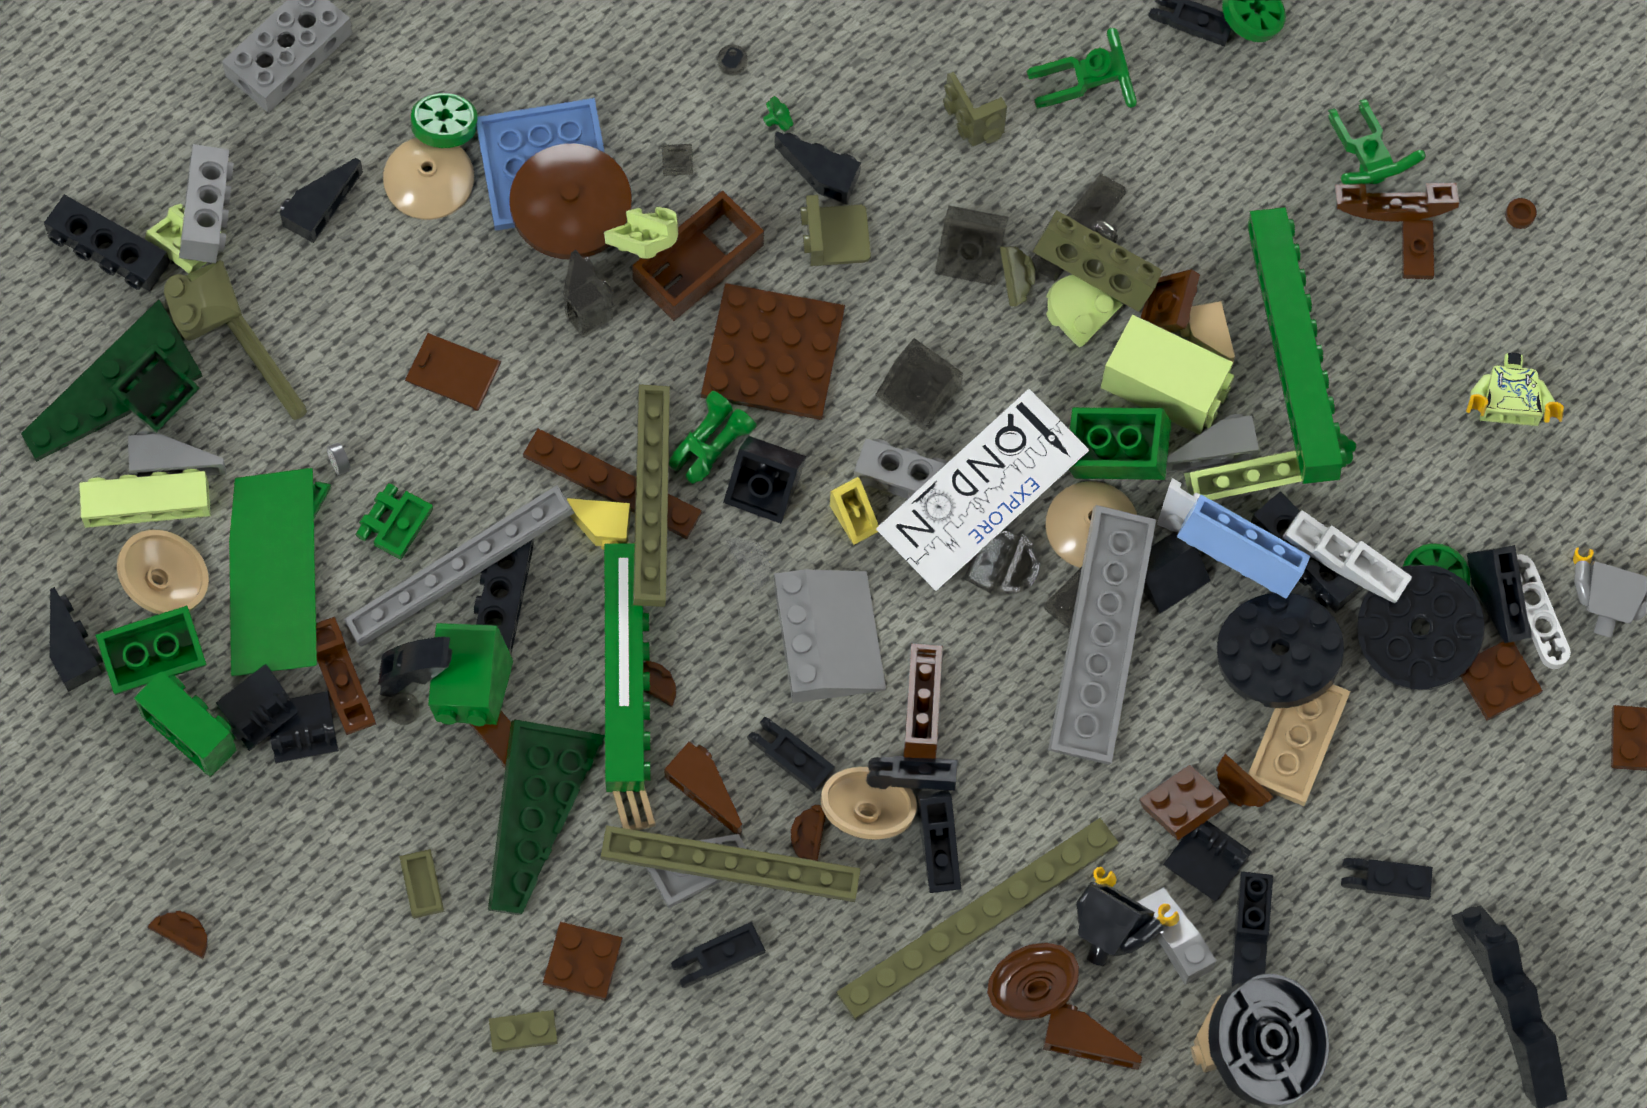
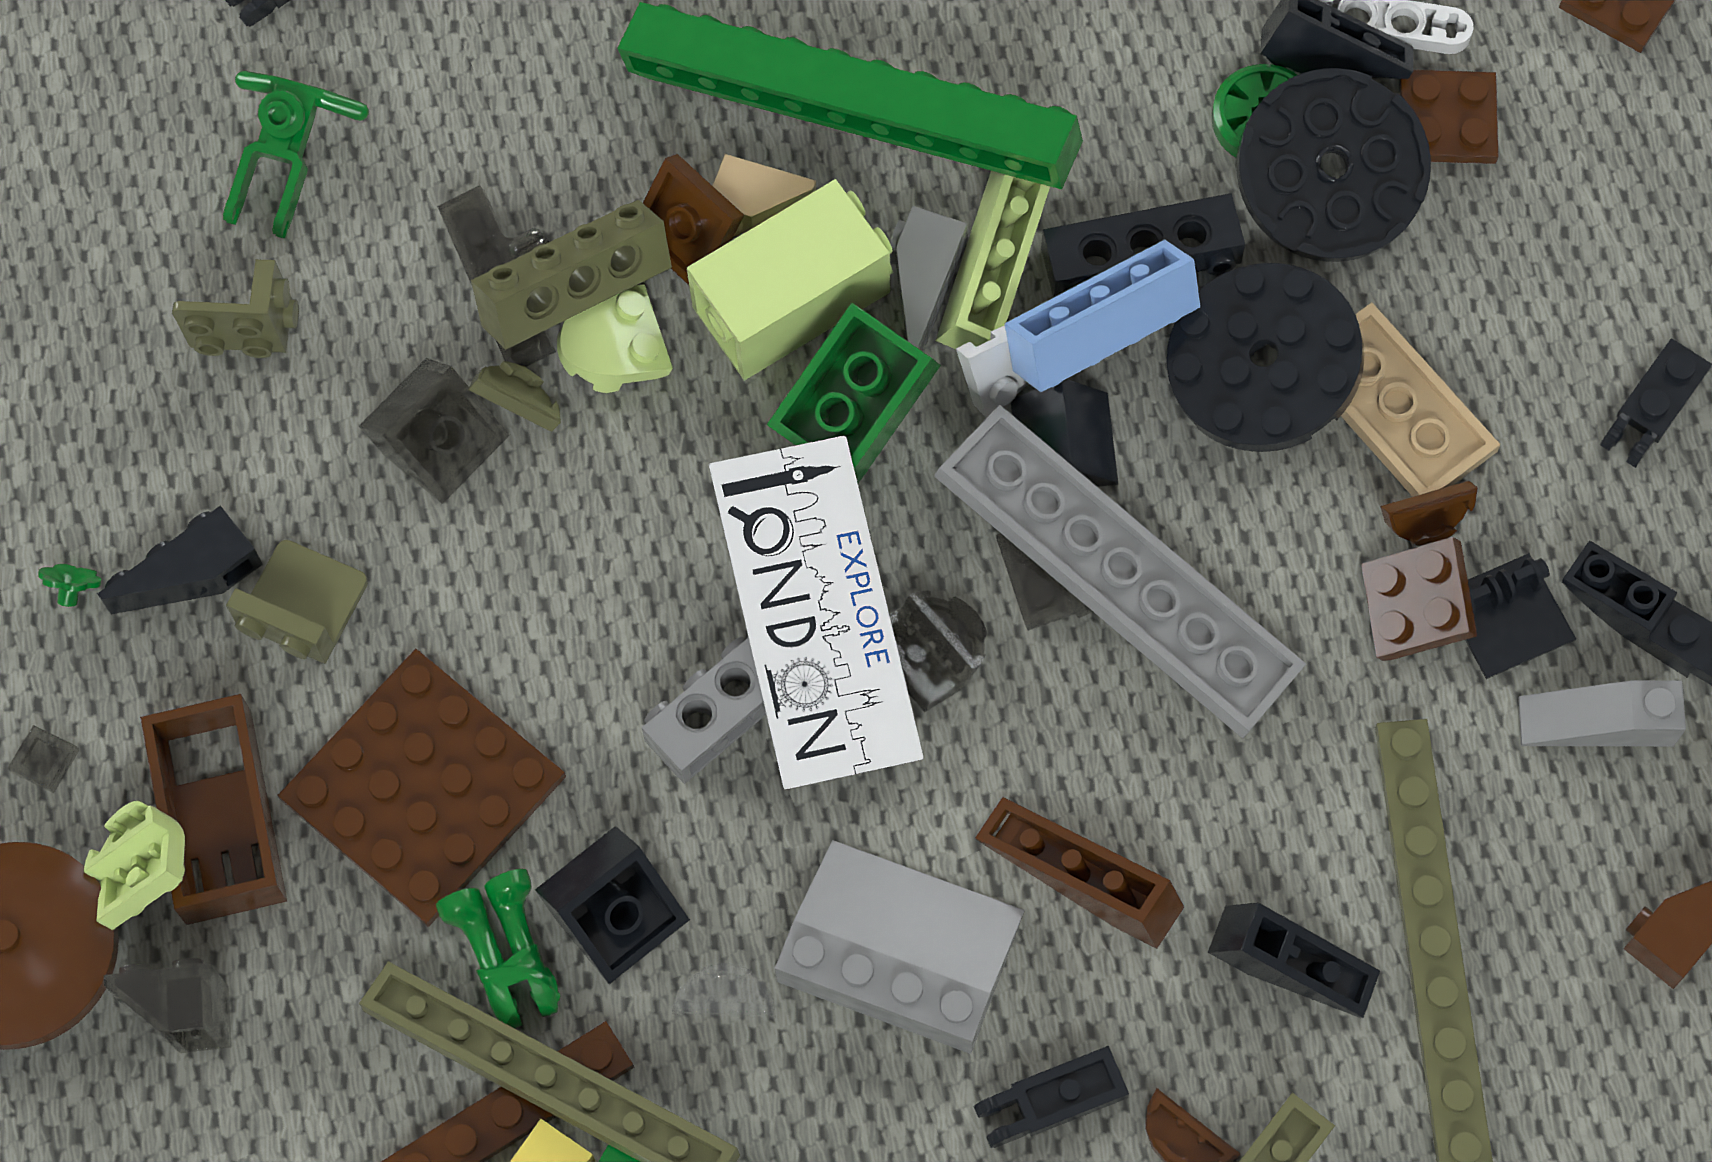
camera: 55 degrees left, 0 degrees up
(853, 510) = (737, 806): light yellow slope -> none
(866, 810) = (1191, 1006): tan dish -> none
(912, 773) = (1184, 939): black hinge -> none
(919, 384) = (599, 612): clear smoke slope -> none
(1033, 981) = (1582, 943): reddish brown hat -> none
(1069, 512) = (913, 521): tan dish -> none
(1116, 921) = (1548, 785): black torso -> none
(1344, 556) = (1191, 196): white slope -> none

